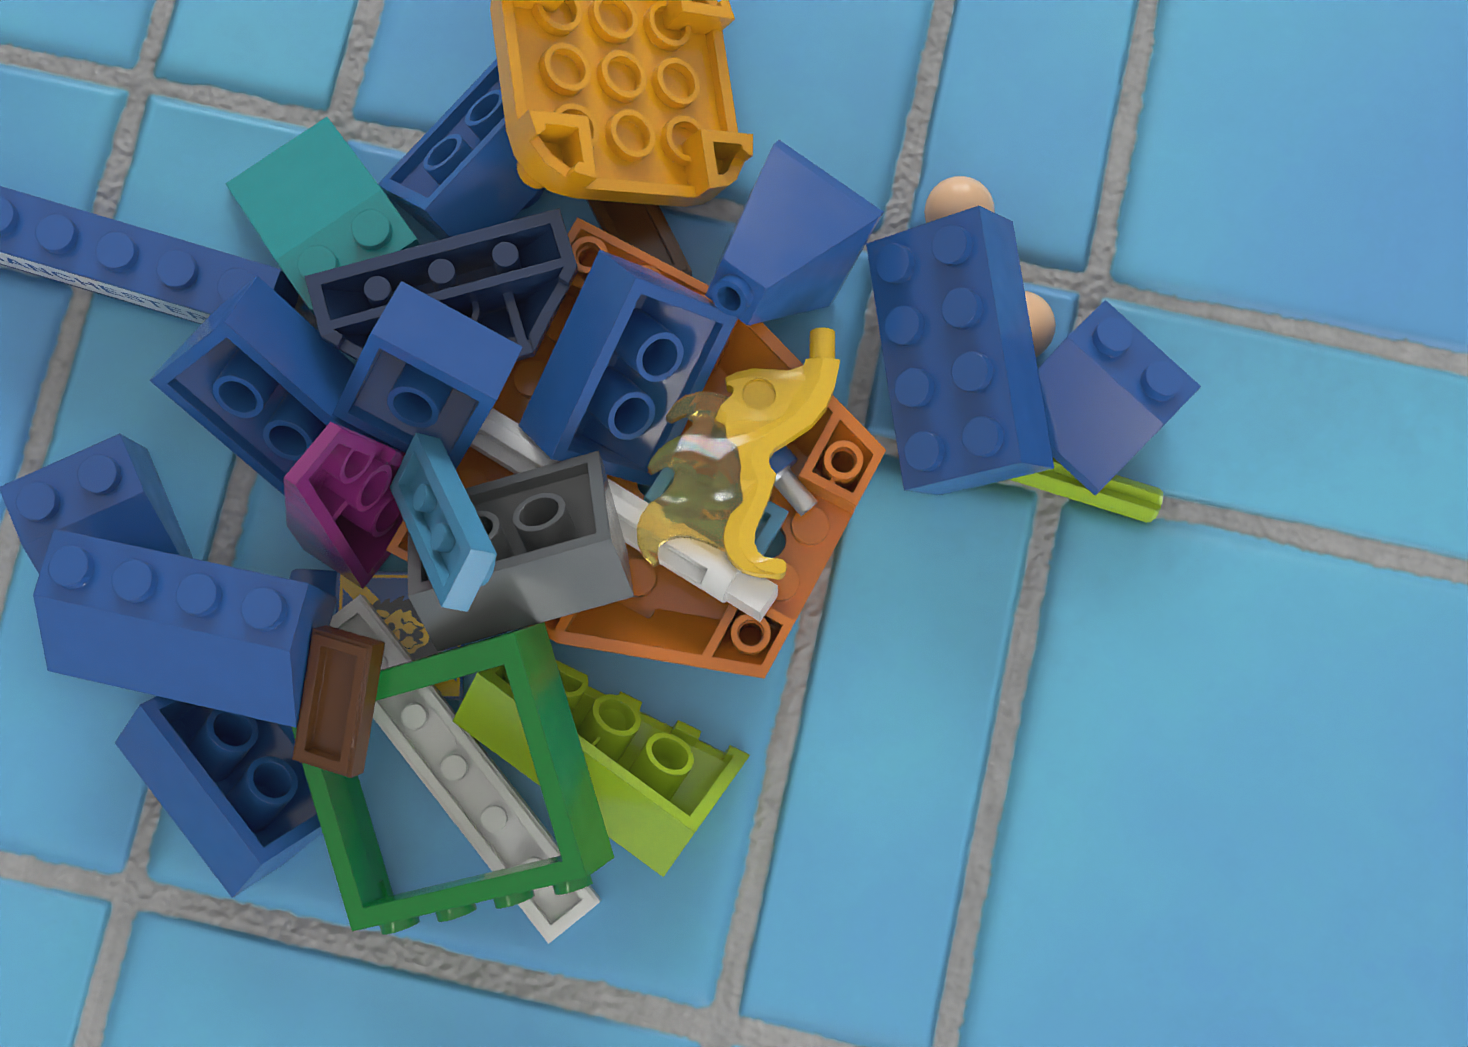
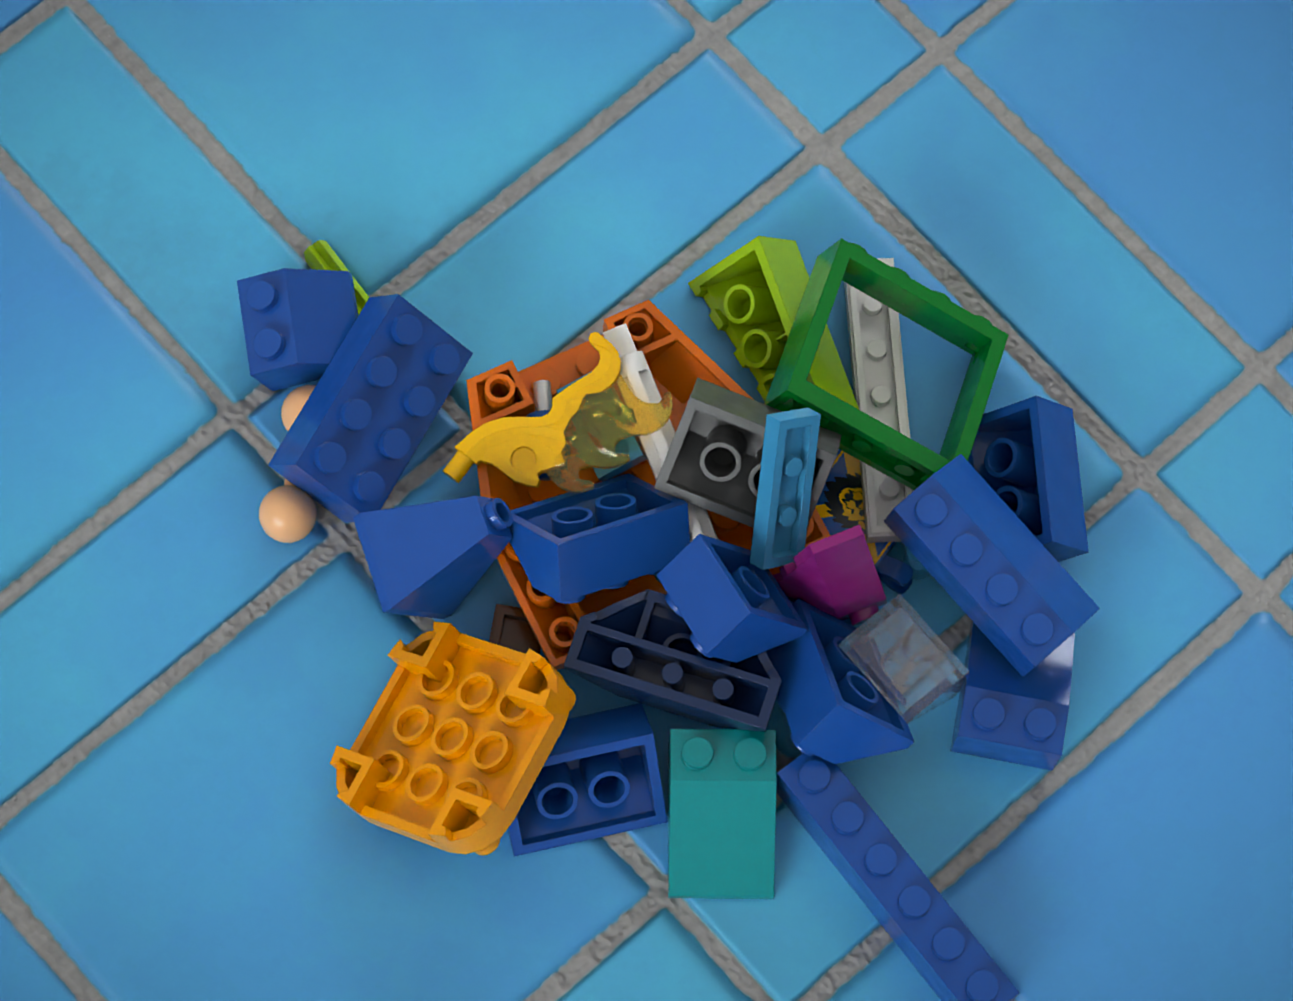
camera: 150 degrees left, 10 degrees down
(223, 471) = (905, 660): none -> clear slope
(338, 700) = (923, 448): reddish brown tile -> none

